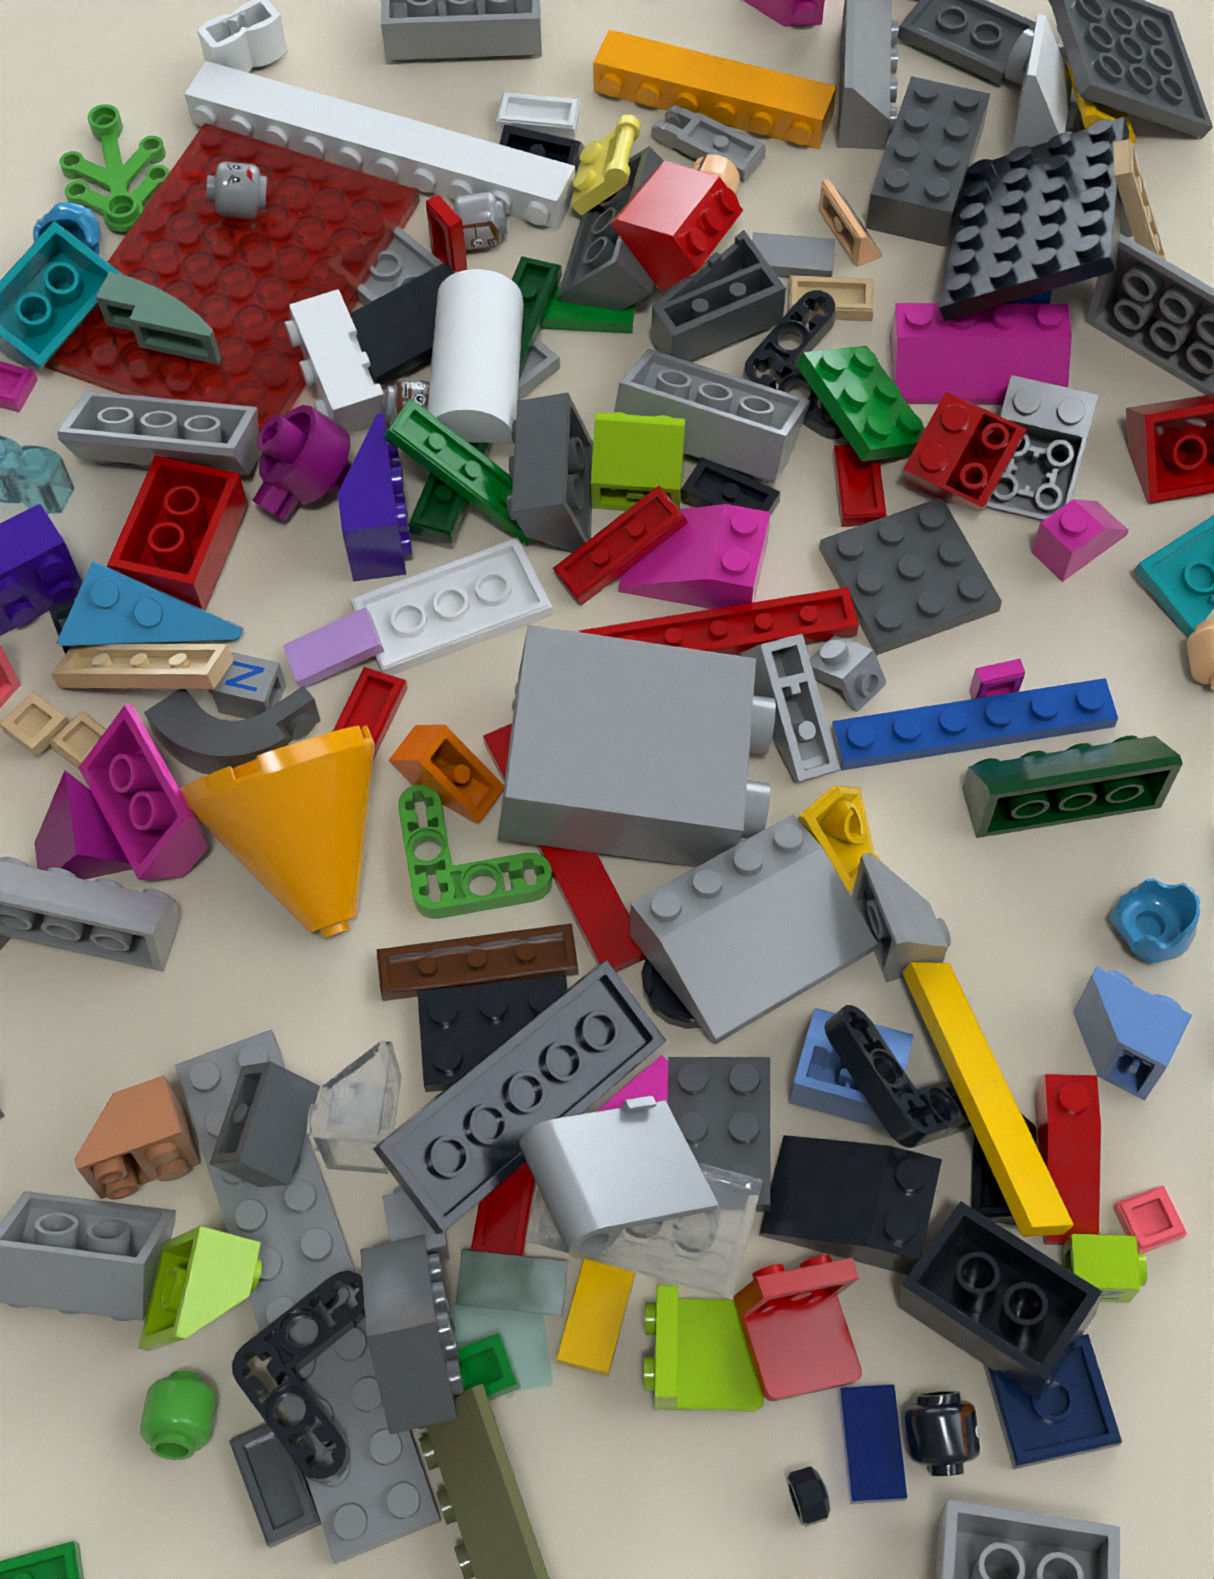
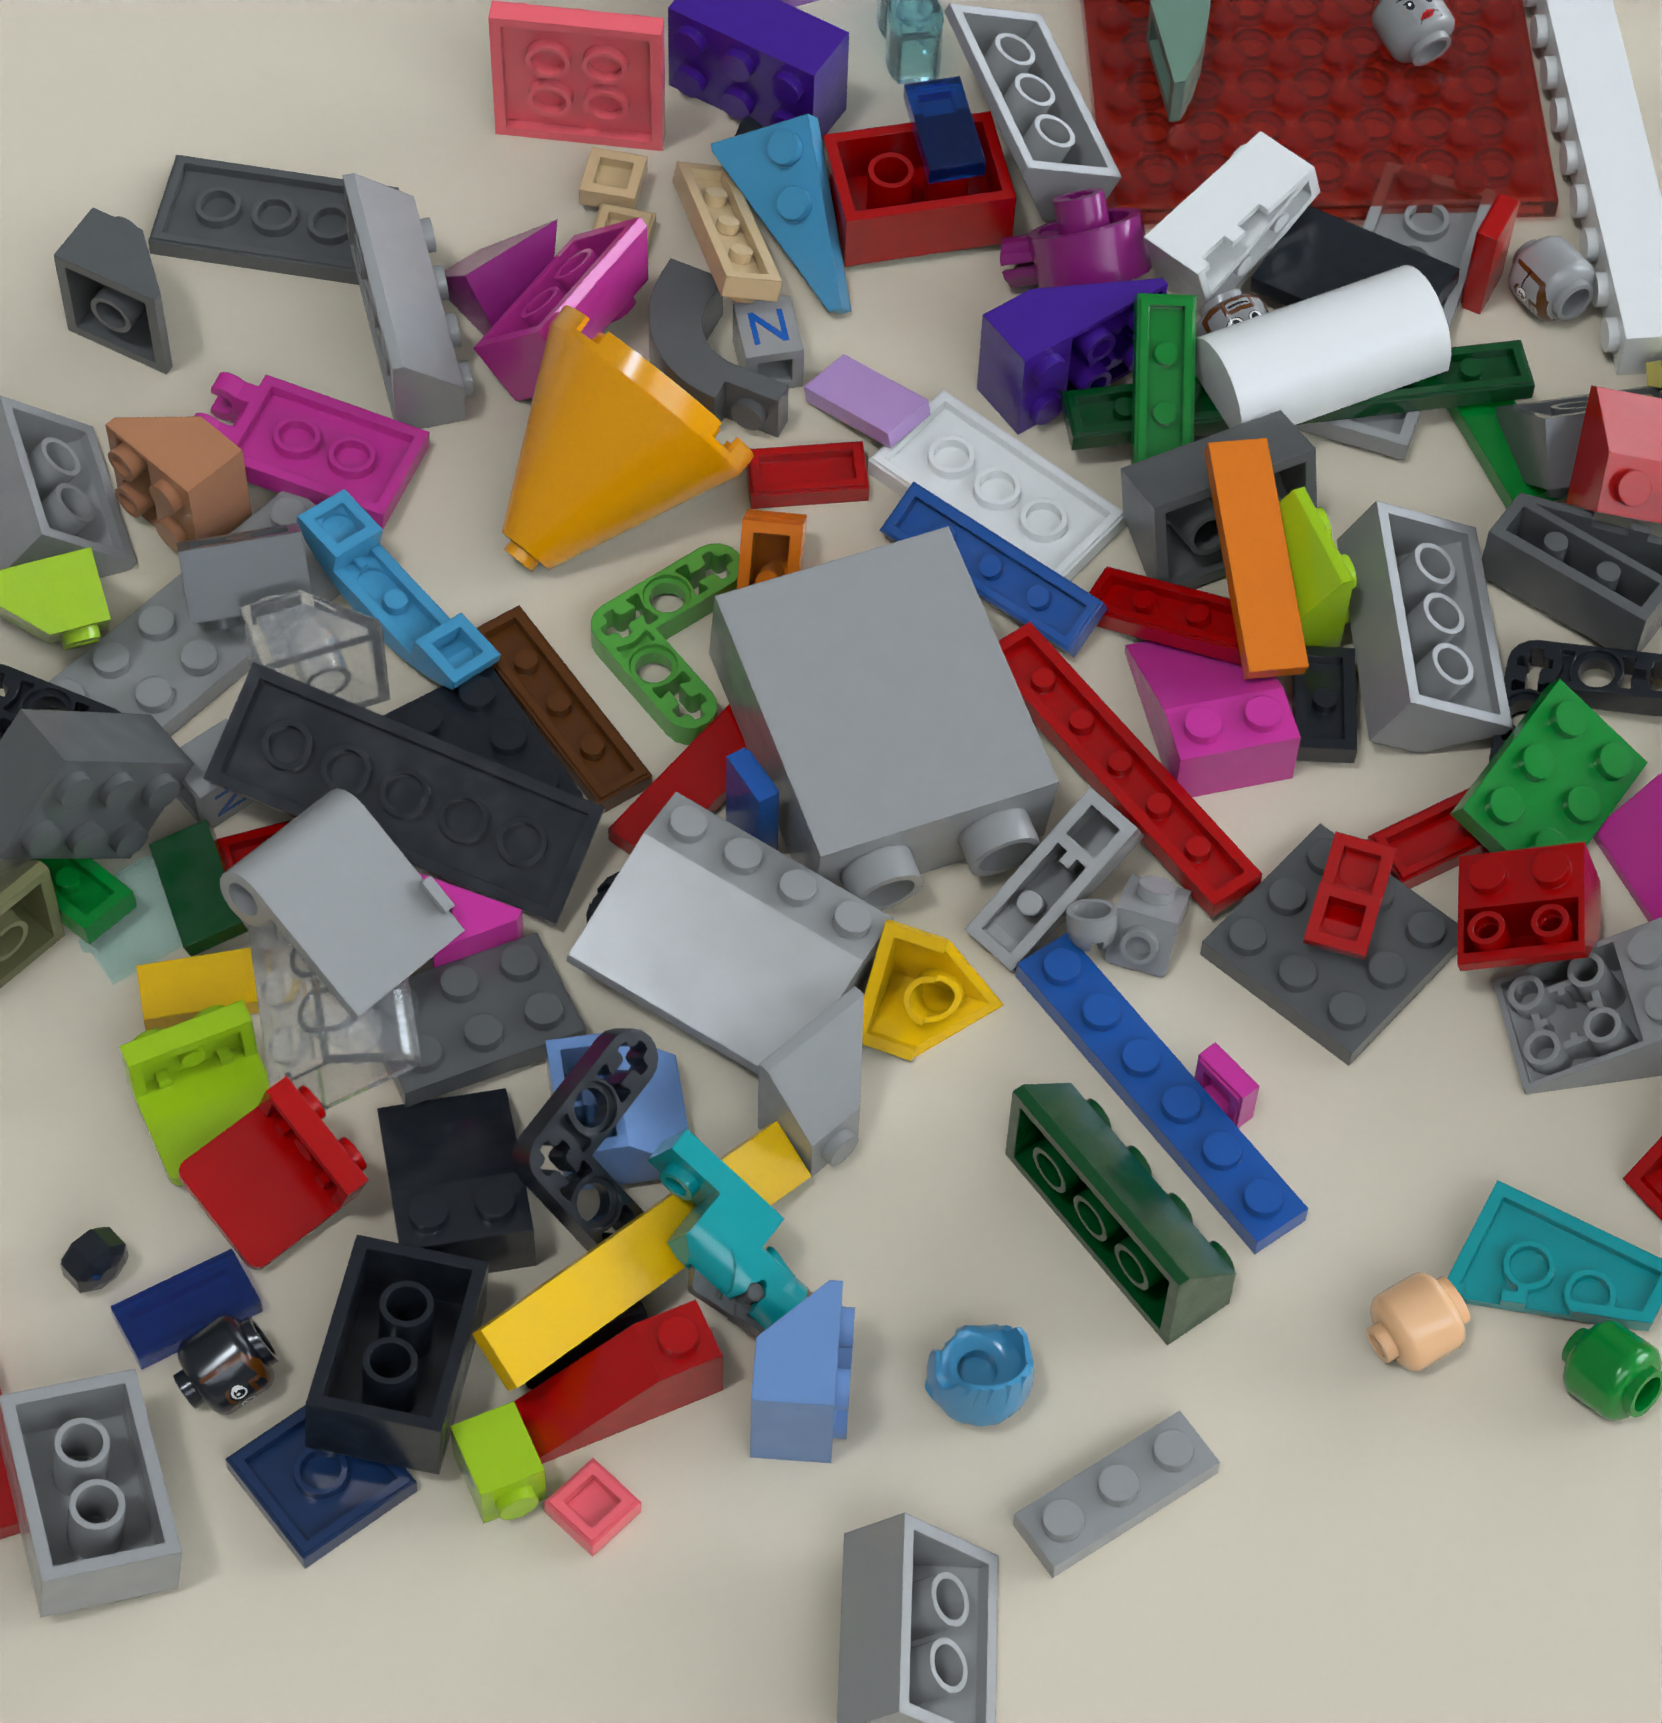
camera: 60 degrees right, 5 degrees down
(148, 1032) = (317, 443): none -> dark pink tile
(157, 487) = (944, 129): none -> clear blue tile
(332, 1033) = (375, 584): none -> dark azure slope
(503, 638) = (1002, 571): none -> blue tile
(632, 466) = (1256, 558): none -> orange tile
(651, 862) = (751, 797): none -> blue tile
(843, 699) = (1091, 923): none -> light grey hinge
(895, 546) = (1350, 895): none -> red slope
(1007, 1033) = (726, 1237): none -> teal plate
(1076, 536) = (1509, 1104): dark pink slope -> none

